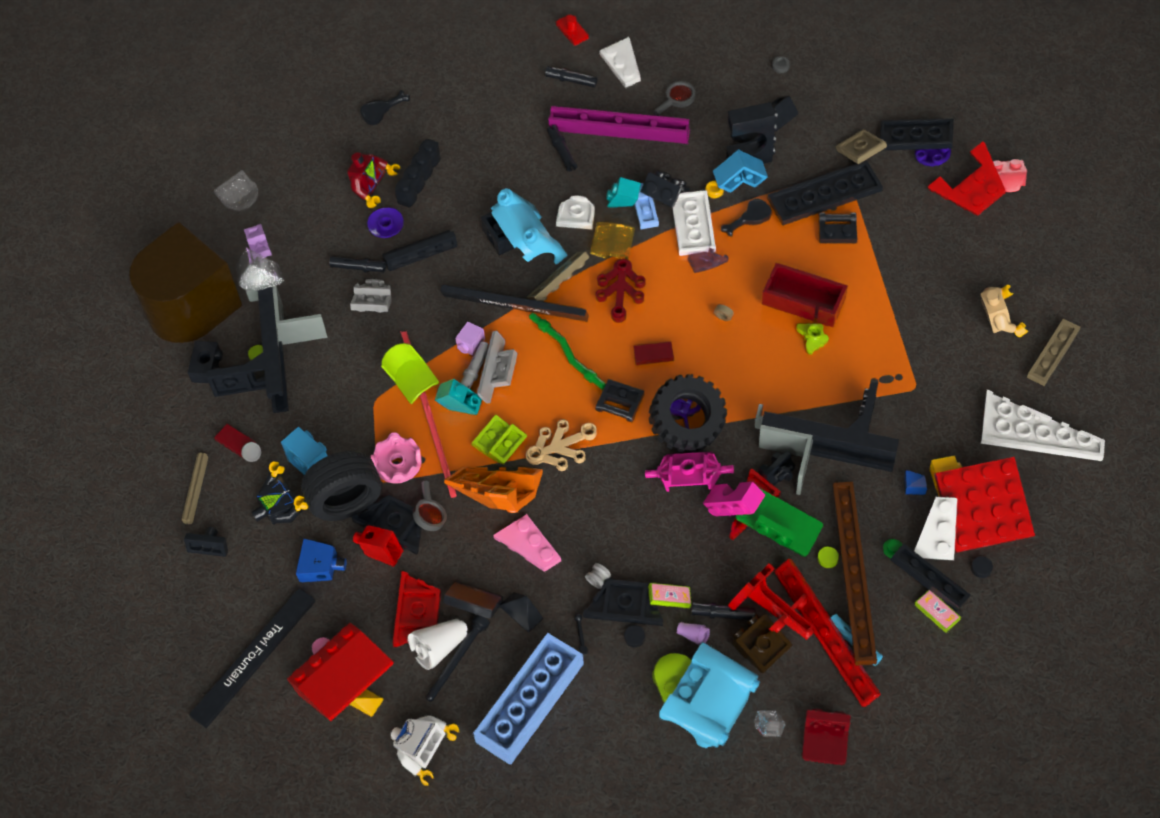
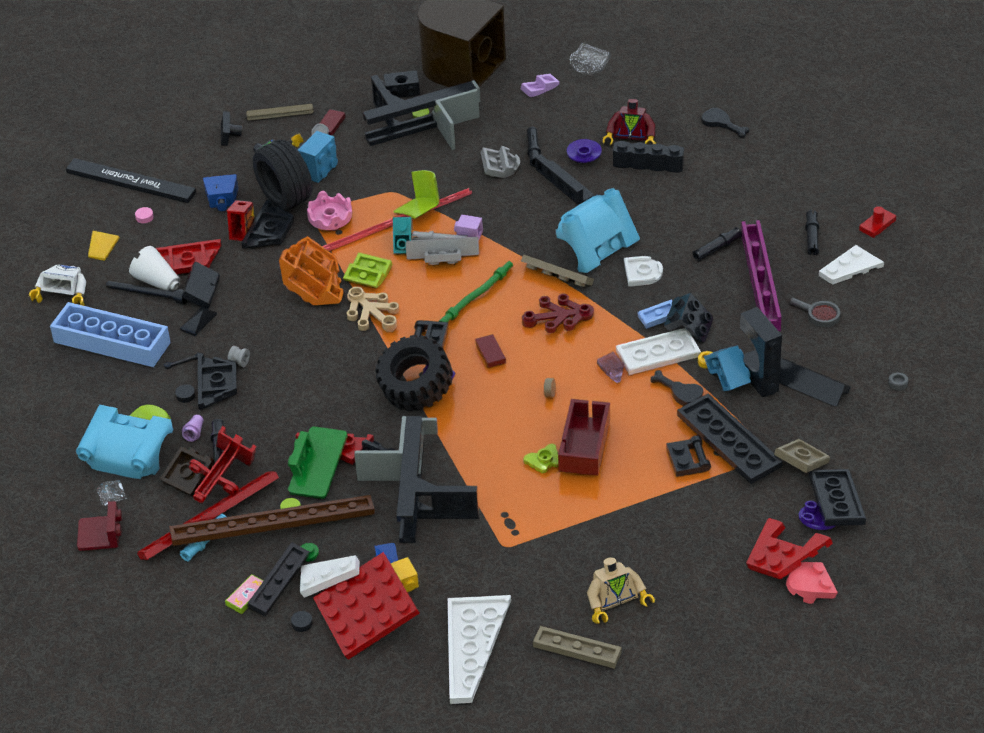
camera: 75 degrees right, 15 degrees down
(257, 271) = (492, 78): clear slope -> none
(340, 671) = (118, 220): red slope -> none
(427, 512) = (279, 239): dark grey piece -> none
(515, 303) = (517, 248): black tile -> none
(529, 542) = (266, 311): bright pink wing -> none
(612, 240) = (613, 298): clear yellow slope -> none
(623, 193) = (665, 286): teal slope -> none
(669, 595) = (226, 403): tile -> none
(704, 471) = (360, 393): dark pink plate -> none
(741, 501) = (324, 418): dark pink arch -> none

